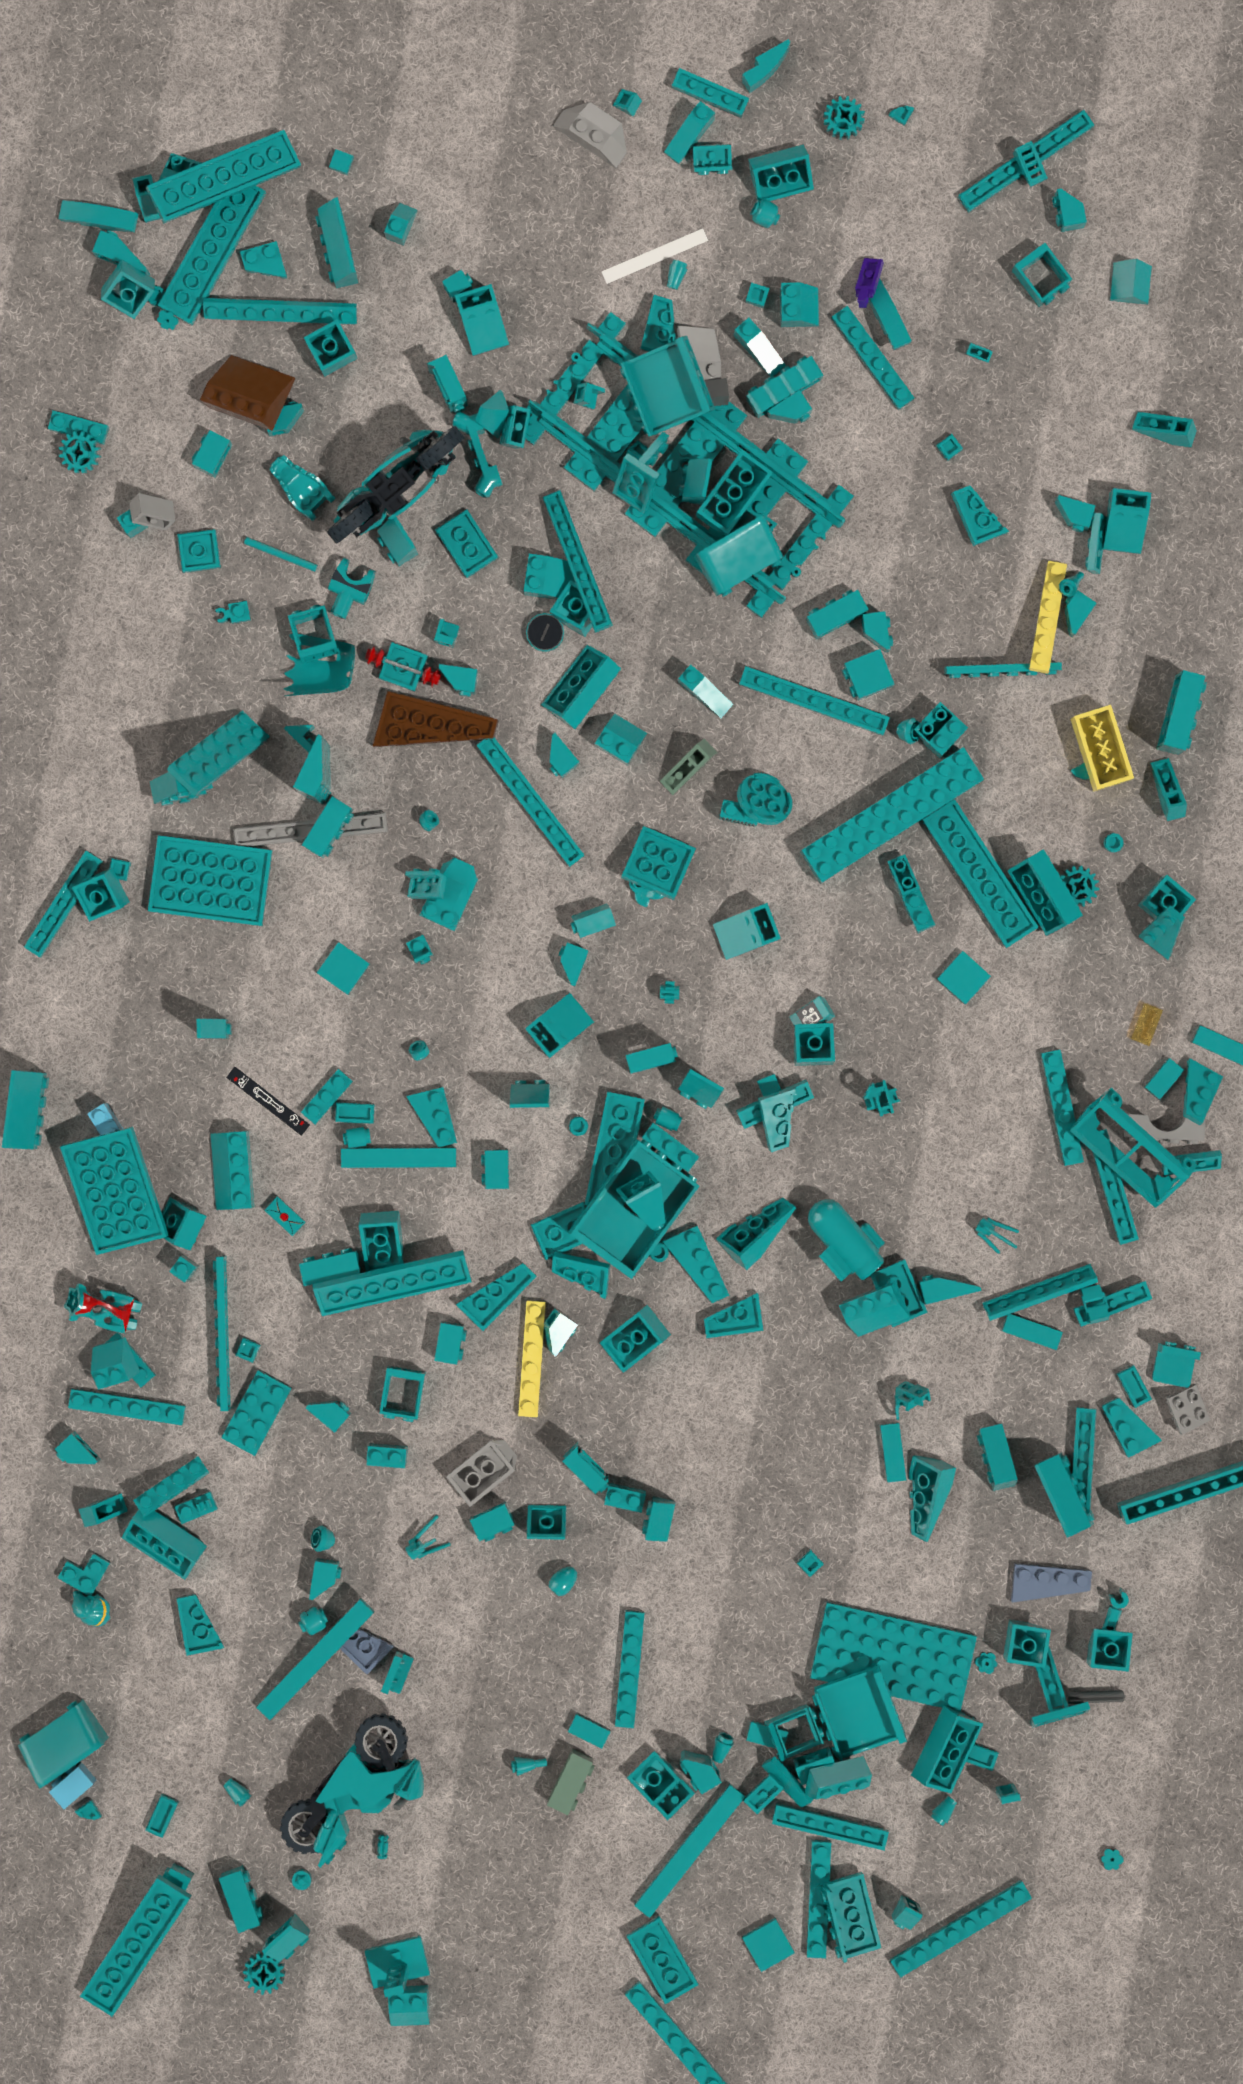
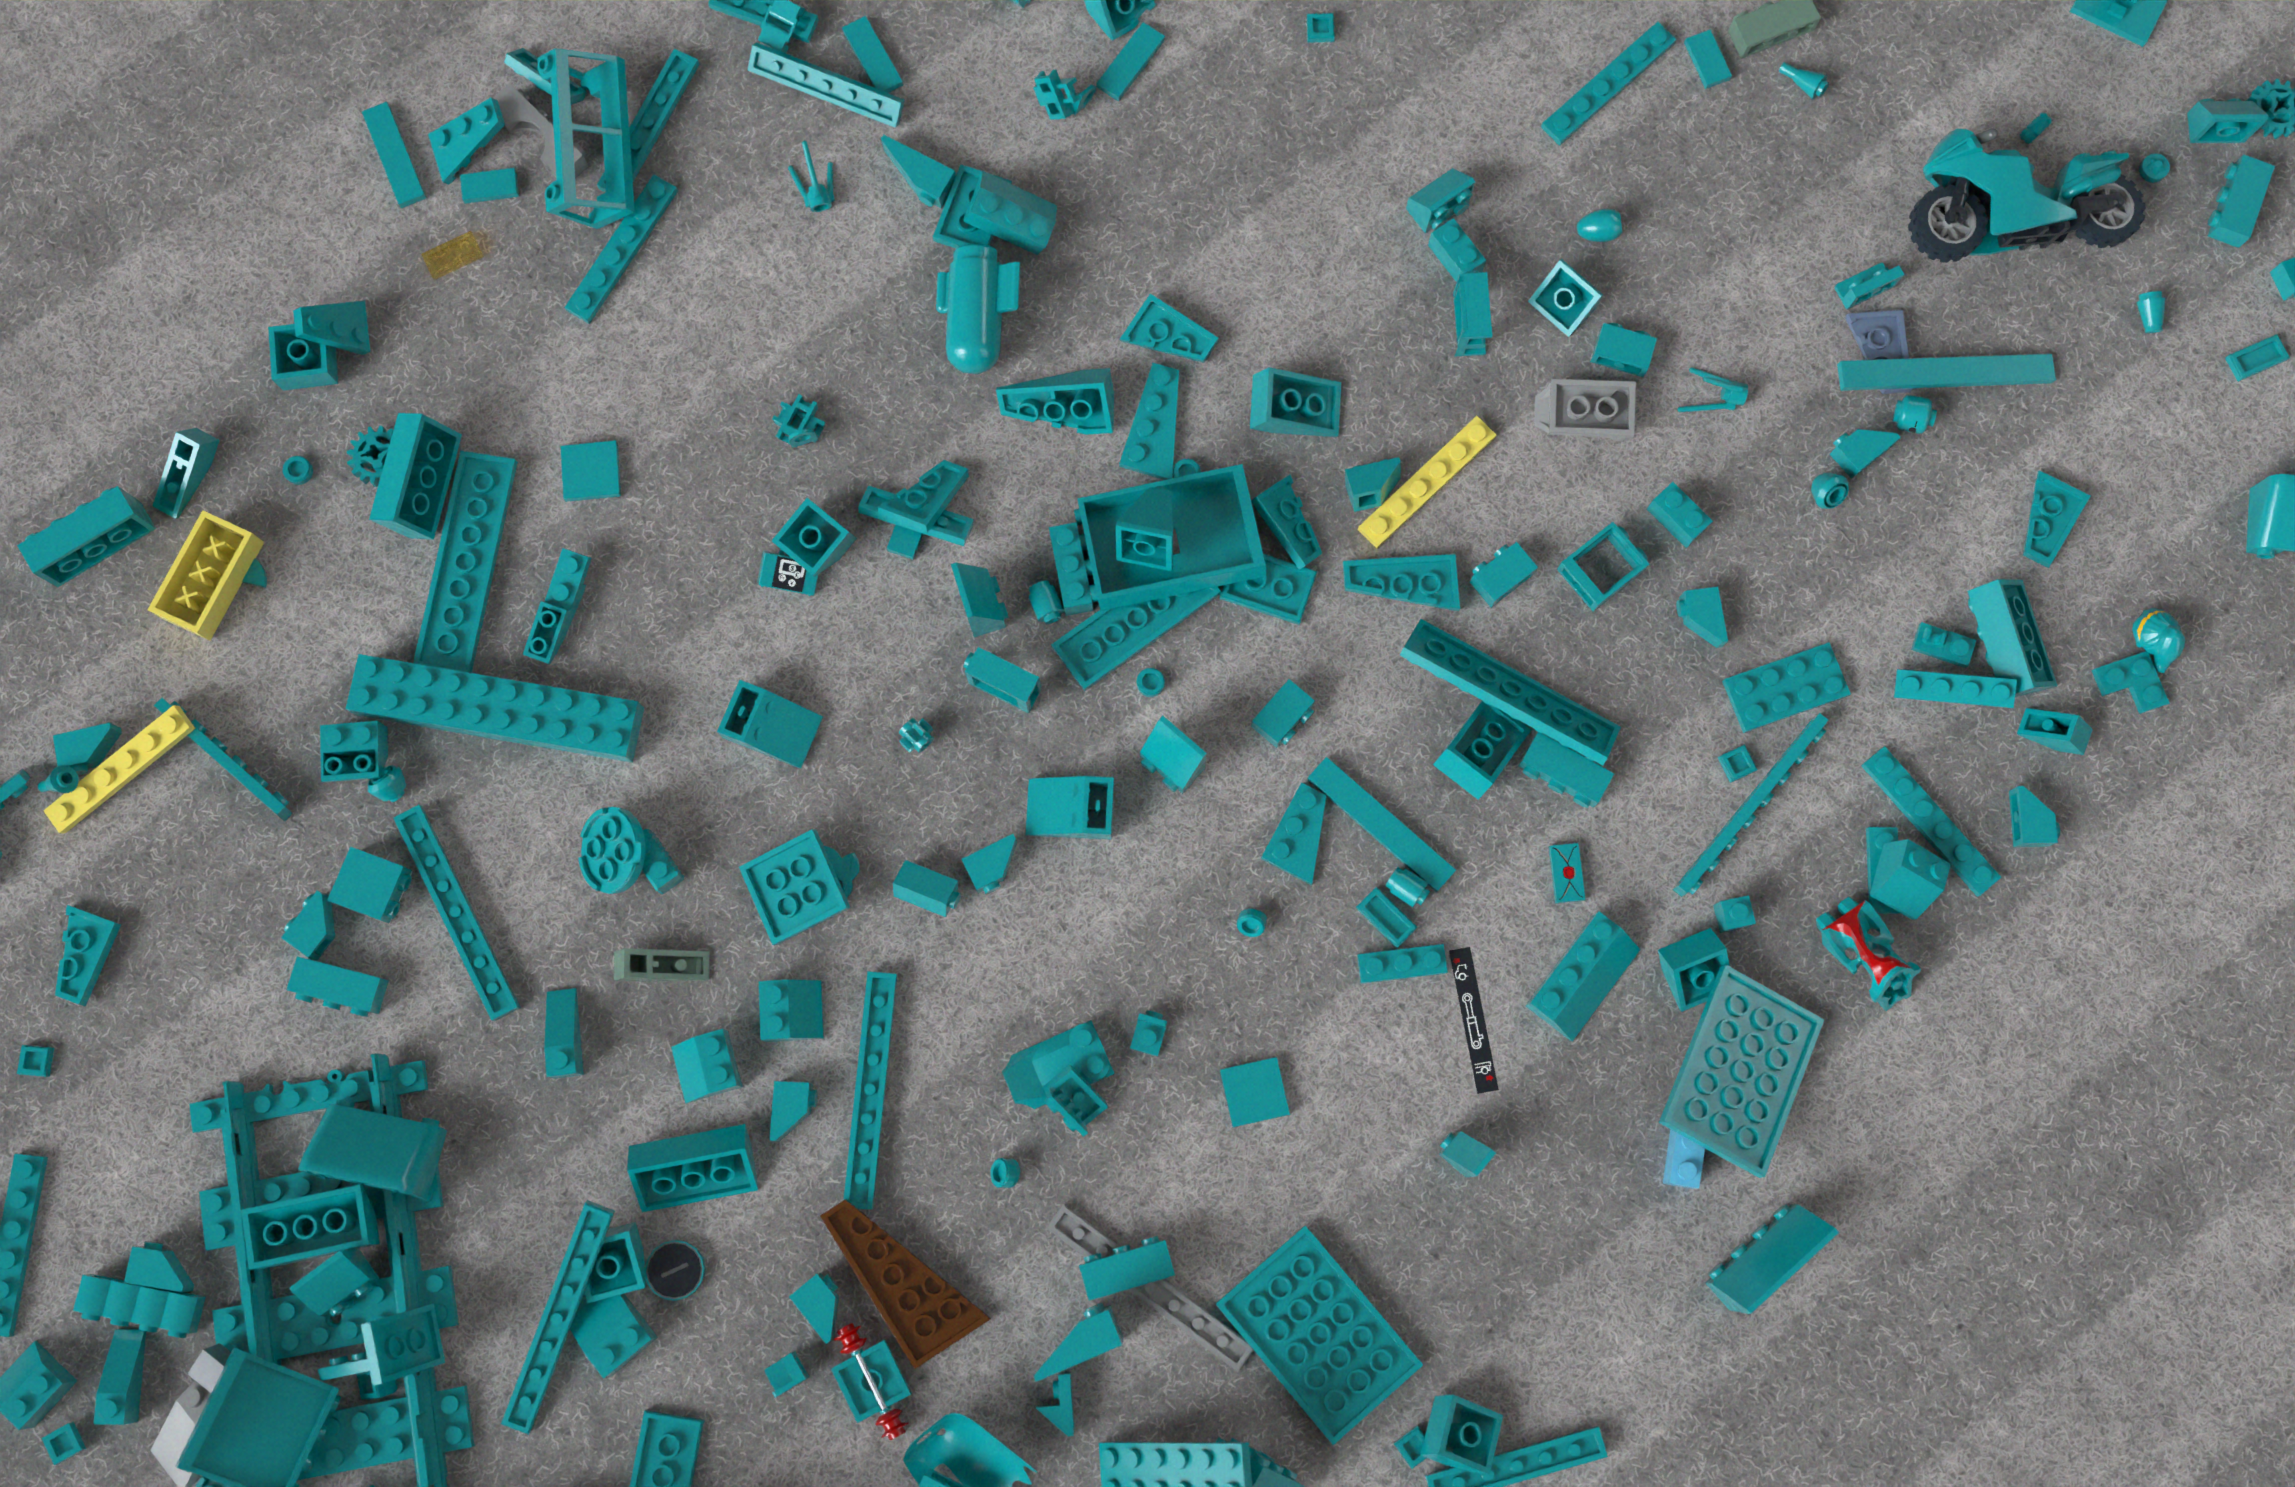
camera: 135 degrees left, 10 degrees down
(604, 802) = (790, 1010): none -> teal slope

